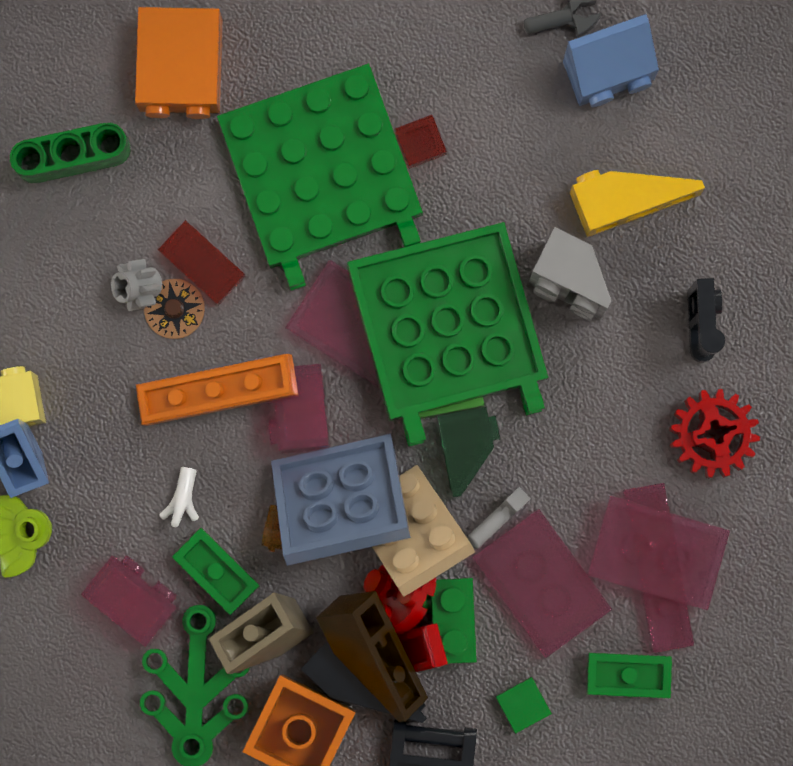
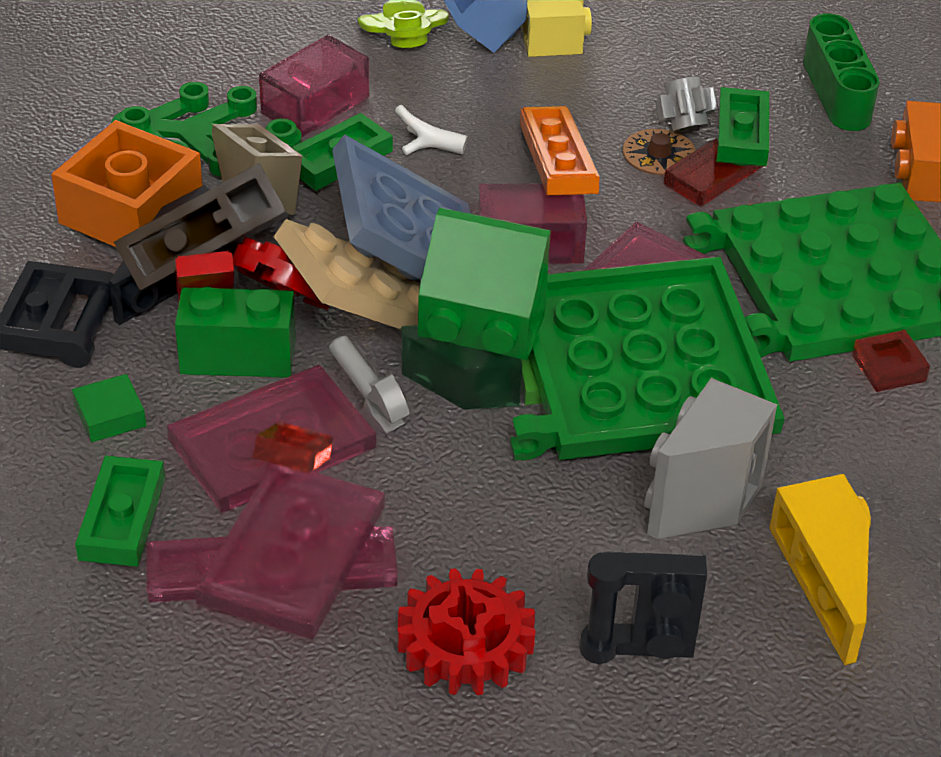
camera: 90 degrees right, 40 degrees down
(172, 238) = (743, 127): none -> green plate
(450, 435) = (484, 283): none -> slope
(576, 562) = (293, 447): none -> clear red tile

